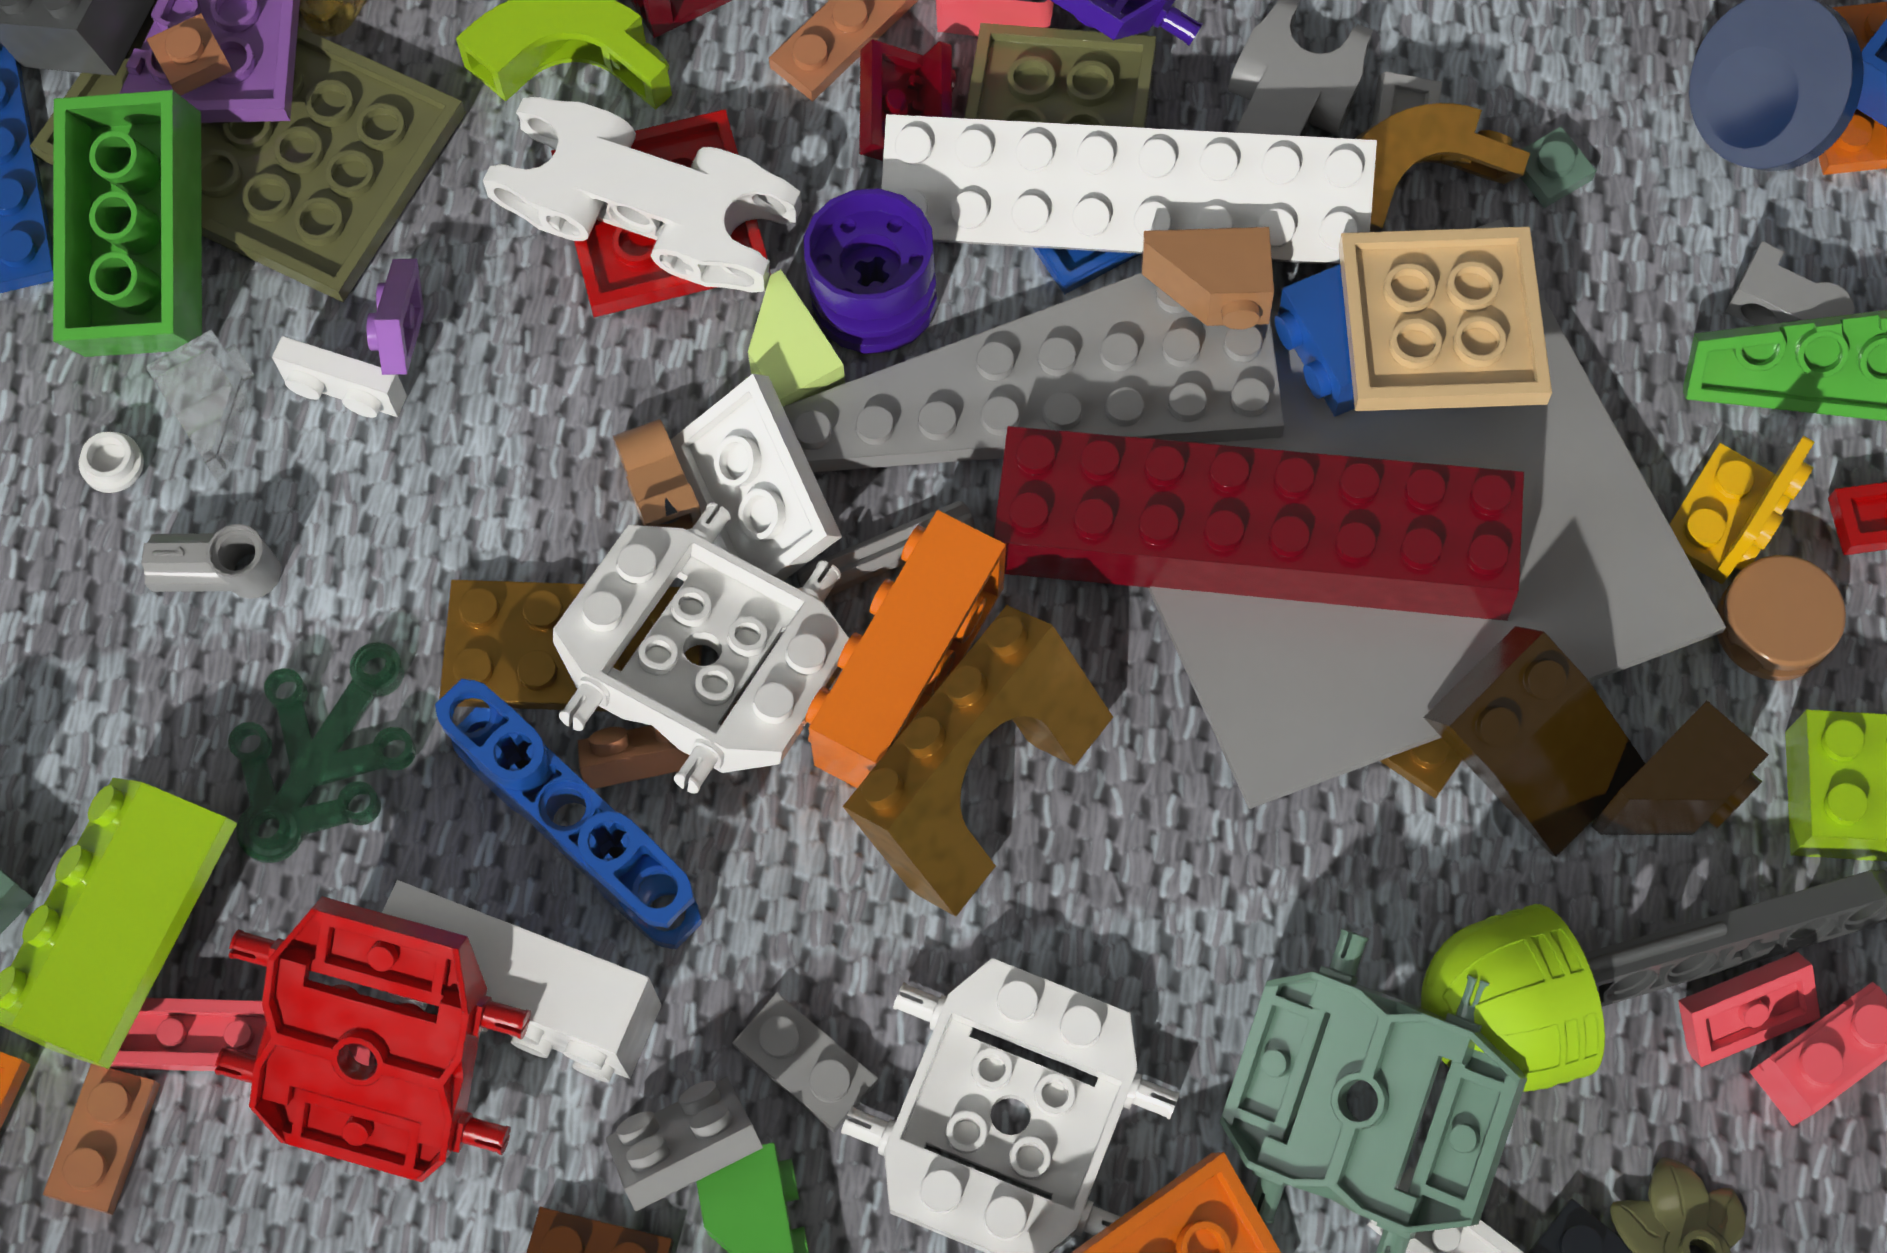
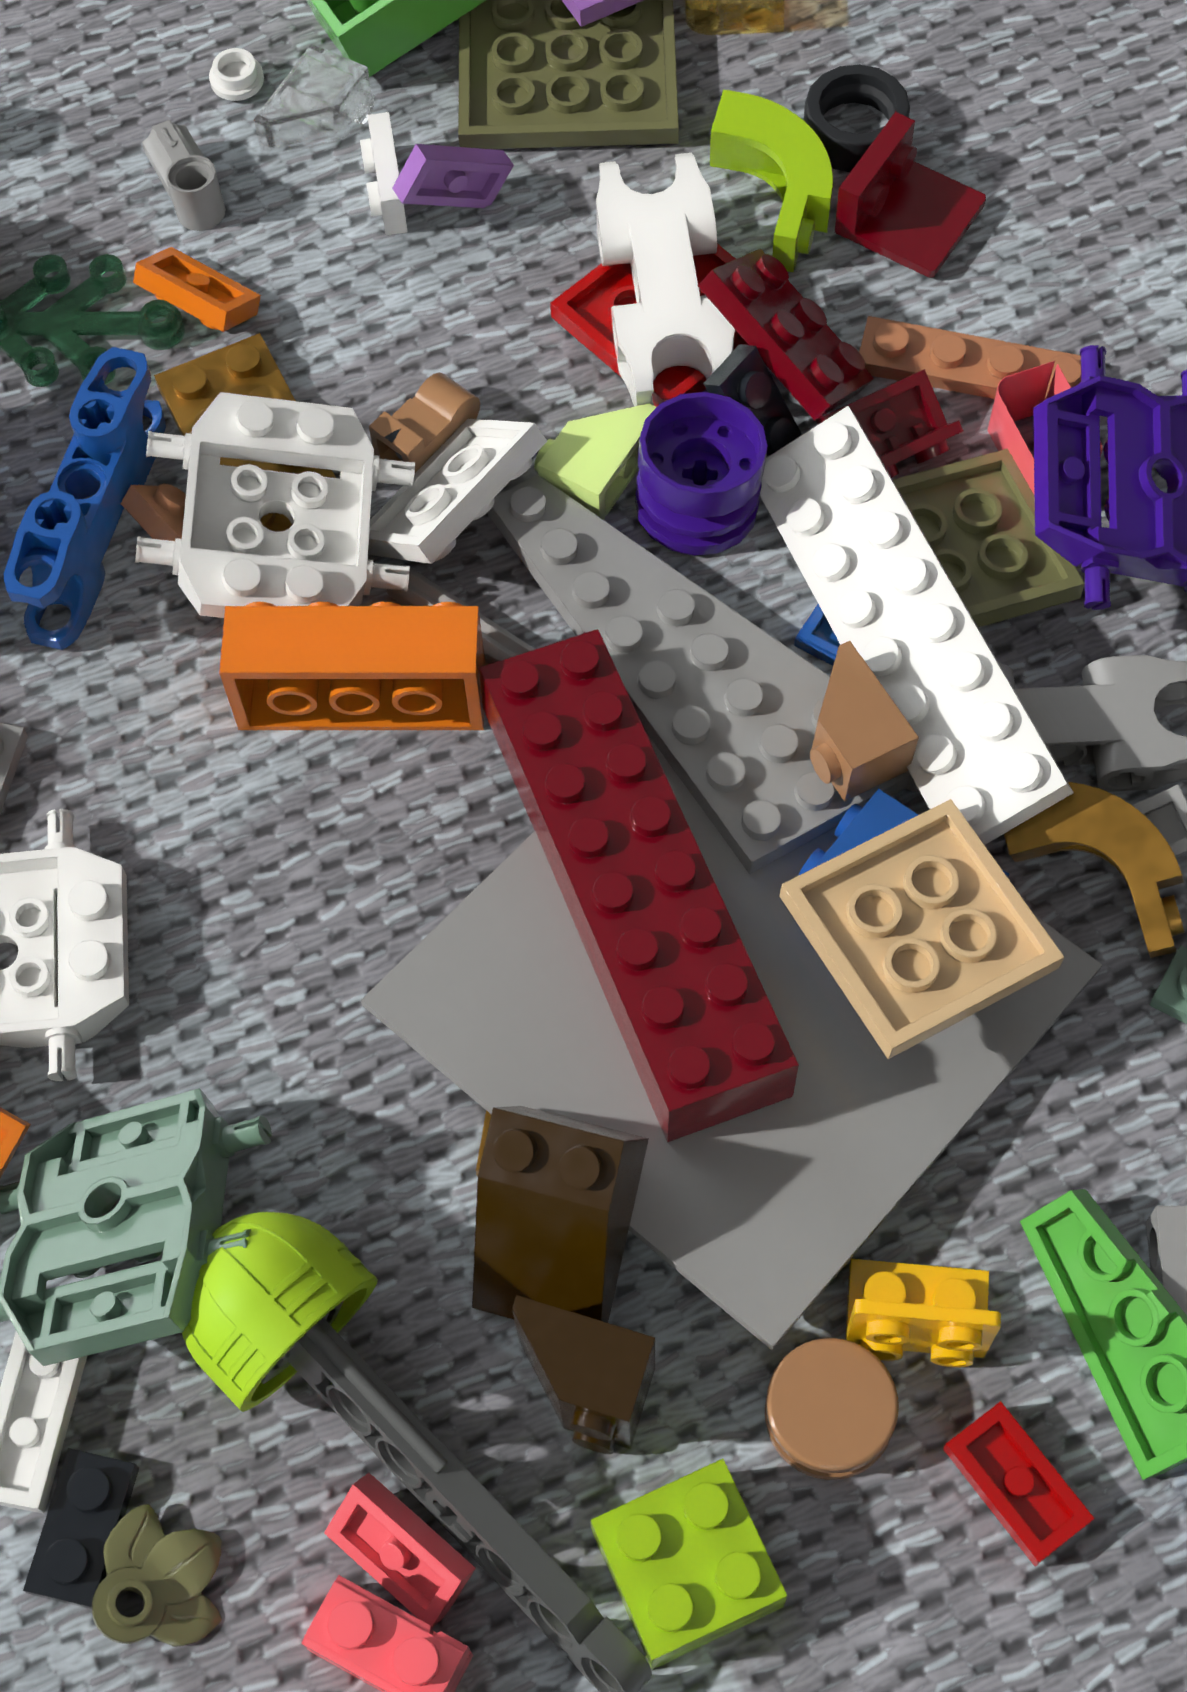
camera: 65 degrees right, 5 degrees down
(362, 613) = (196, 289): none -> orange plate
(771, 122) = (787, 332): none -> dark red plate
(816, 181) = (749, 382): none -> black plate
(914, 792) = (358, 735): pearl gold arch -> none

